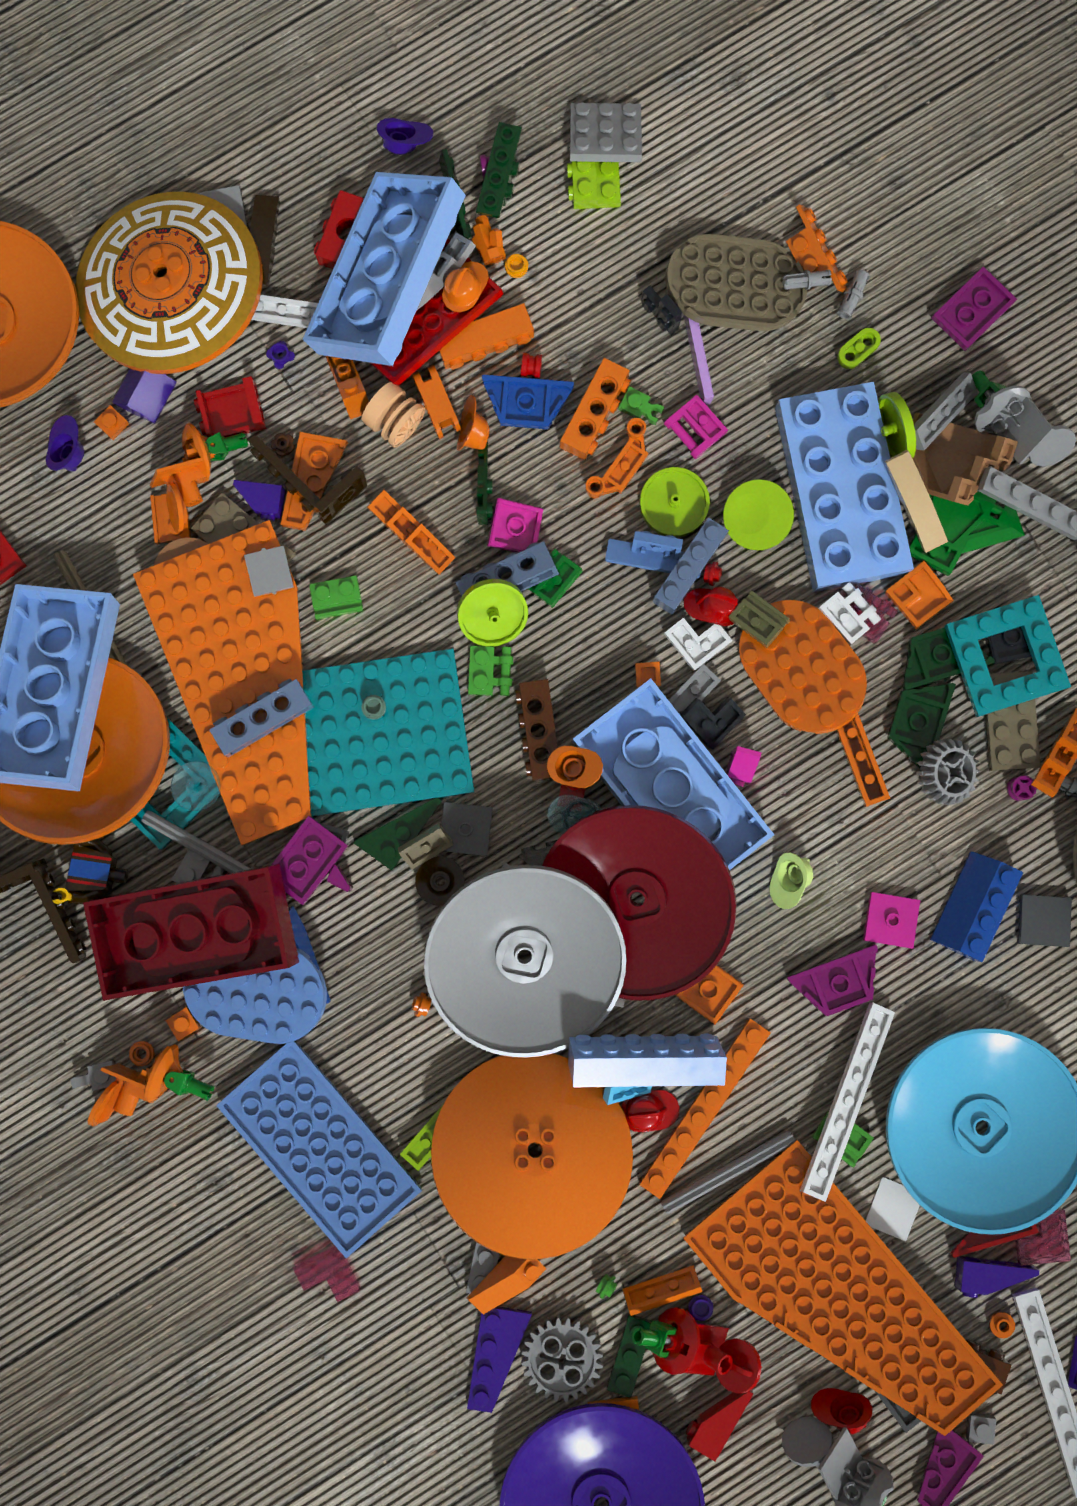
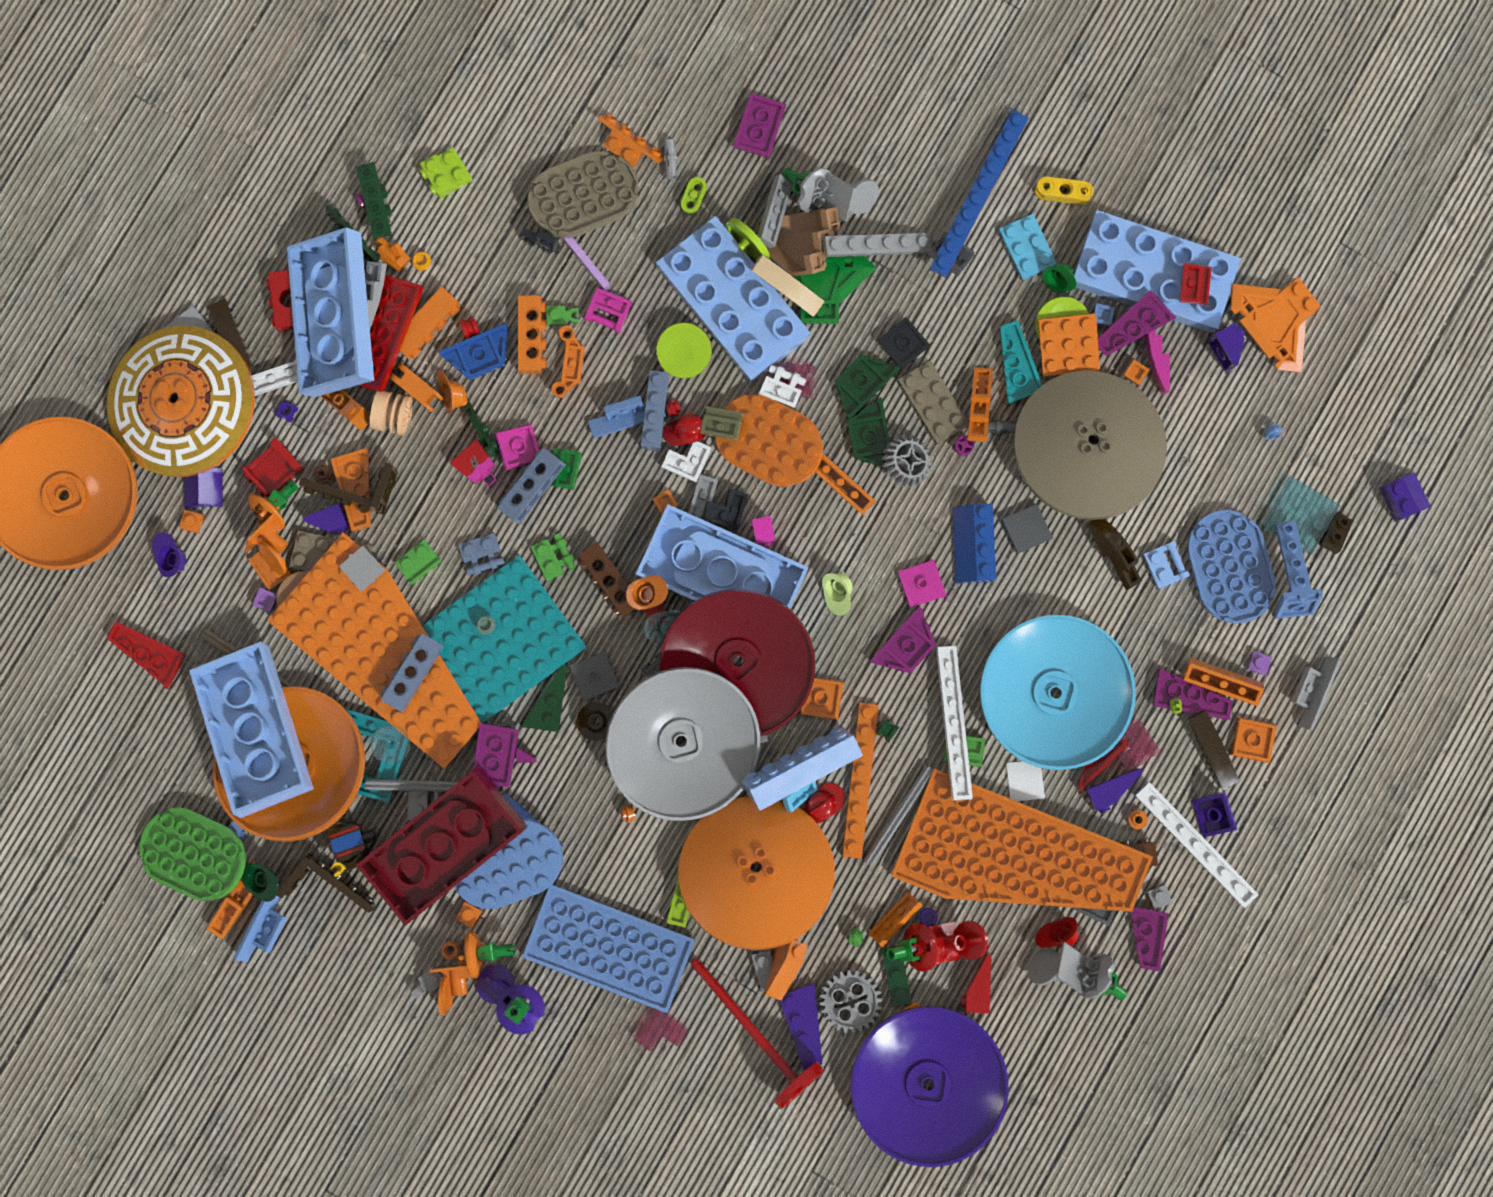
camera: 30 degrees left, 0 degrees up
(144, 551) = (265, 600): none -> medium lavender plate
(169, 1168) = (513, 1012): none -> dark purple piece
(403, 136) = (292, 209): dark purple piece -> none
(411, 532) = (446, 488): orange slope -> none
(412, 618) = (478, 549): none -> sand blue plate
(425, 846) = (572, 702): dark tan plate -> none
(452, 1425) = (798, 1084): none -> red piece
(457, 521) = (475, 464): none -> torso
(464, 286) = (394, 296): orange piece -> none
(492, 612) = (534, 515): lime piece -> none
(605, 132) = (435, 134): light grey plate -> none
(674, 502) = (620, 371): lime piece -> none
(766, 1067) = (887, 730): none -> dark green wheel
(806, 279) = (631, 167): light grey axle -> none
(919, 595) = (825, 348): orange plate -> none
(1041, 643) = (906, 395): teal plate -> none

